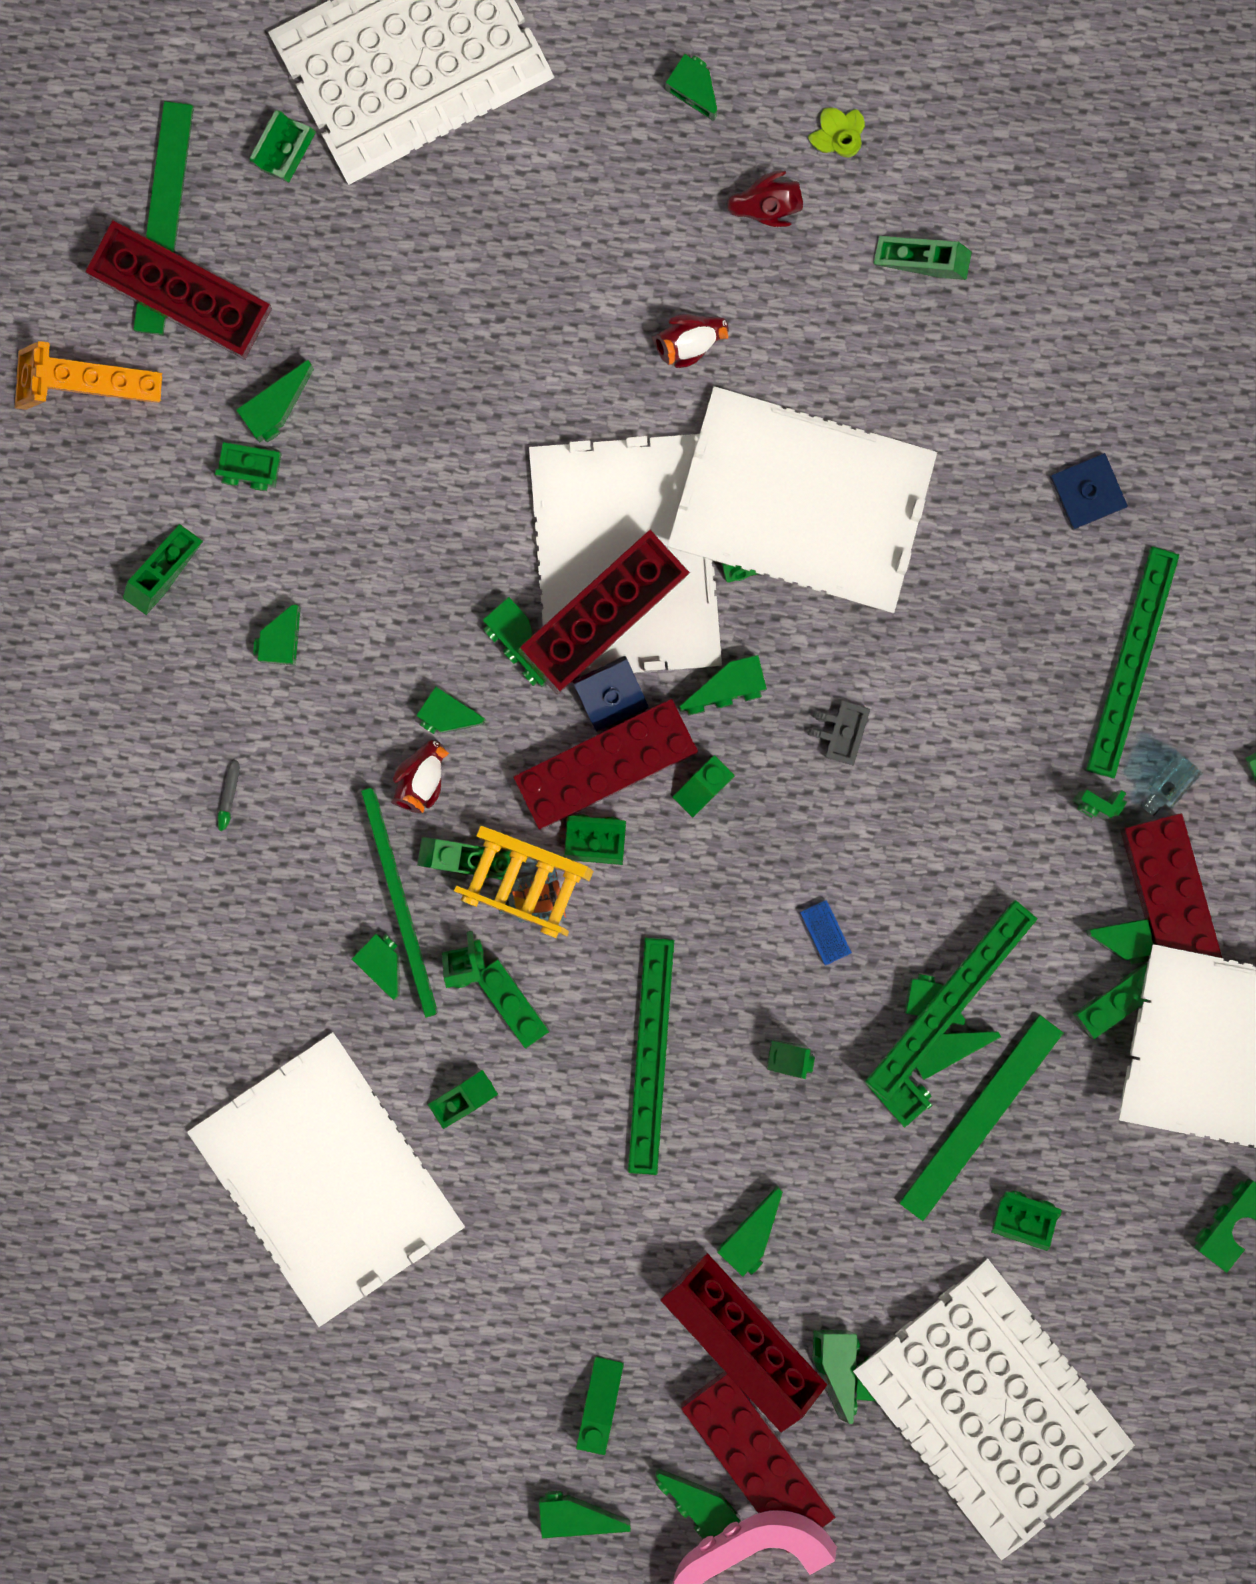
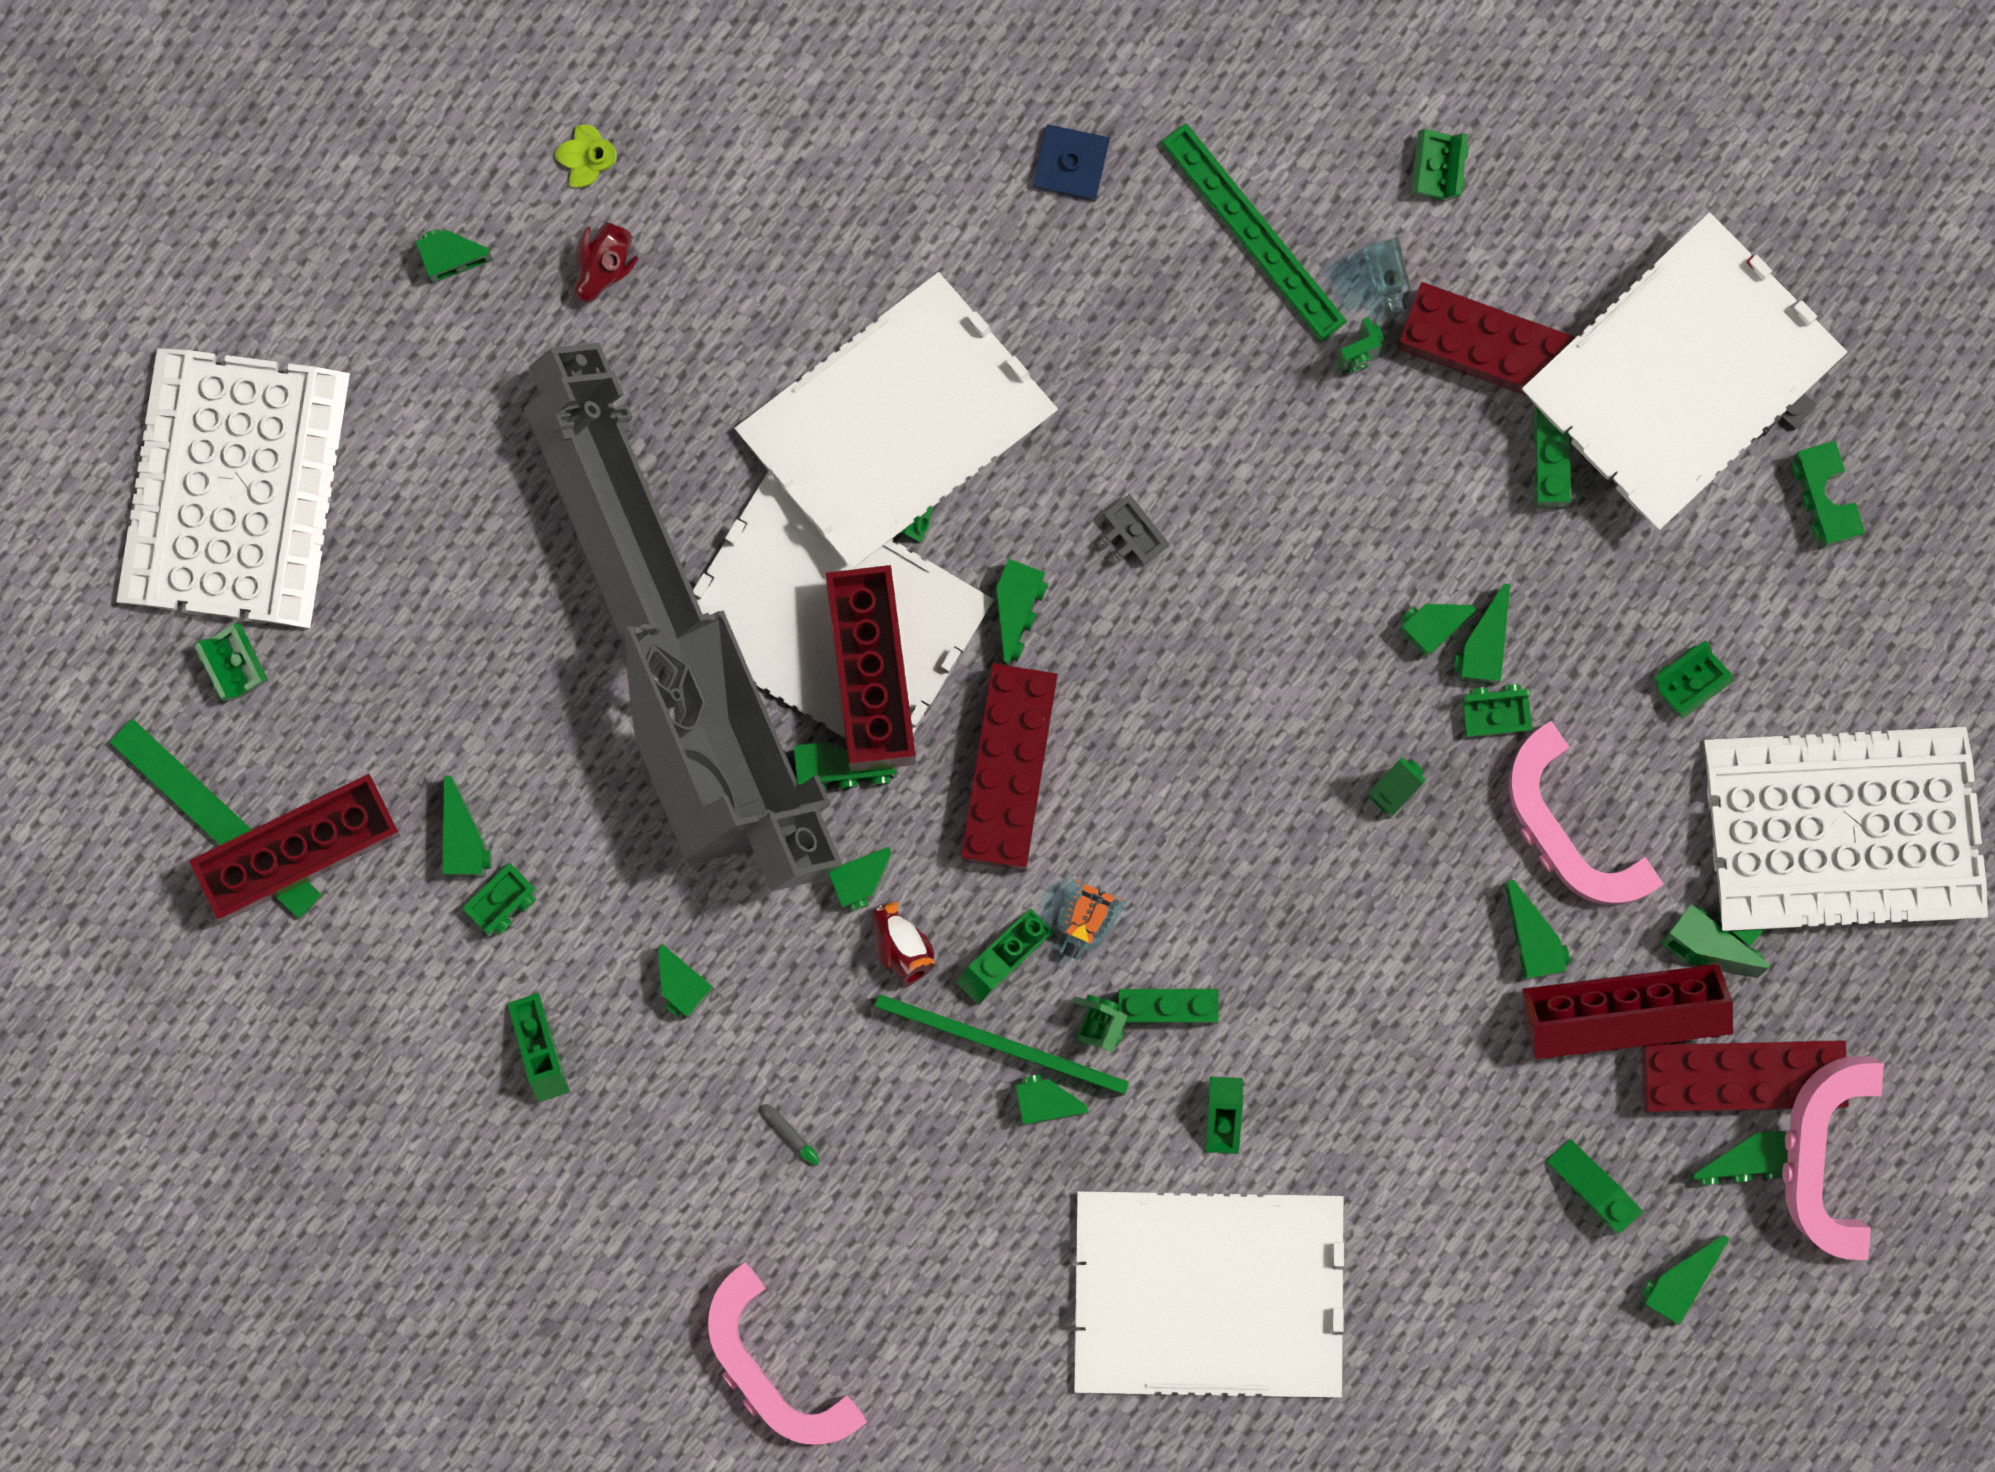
camera: 60 degrees left, 5 degrees down
(31, 896) = (760, 1393): none -> bright pink arch
(39, 373) = (276, 1030): light orange bracket -> none
(456, 554) = (722, 760): none -> dark grey piece
(546, 863) = (1035, 899): yellow fence -> none
(595, 839) = (1071, 825): green bracket -> none
(610, 693) = (947, 717): dark blue plate -> none
(651, 1056) = (1305, 915): green tile -> none
(689, 338) = (676, 419): animal -> none
(703, 786) = (1092, 692): green slope -> none
(825, 932) = (1304, 677): blue tile -> none
(836, 1184) = (1556, 848): none -> bright pink arch
(924, 256) = (753, 159): green slope -> none
(951, 1000) = (1445, 605): green tile -> none
(981, 1117) = (1571, 656): green tile -> none
(1125, 940) = (1500, 413): green slope -> none

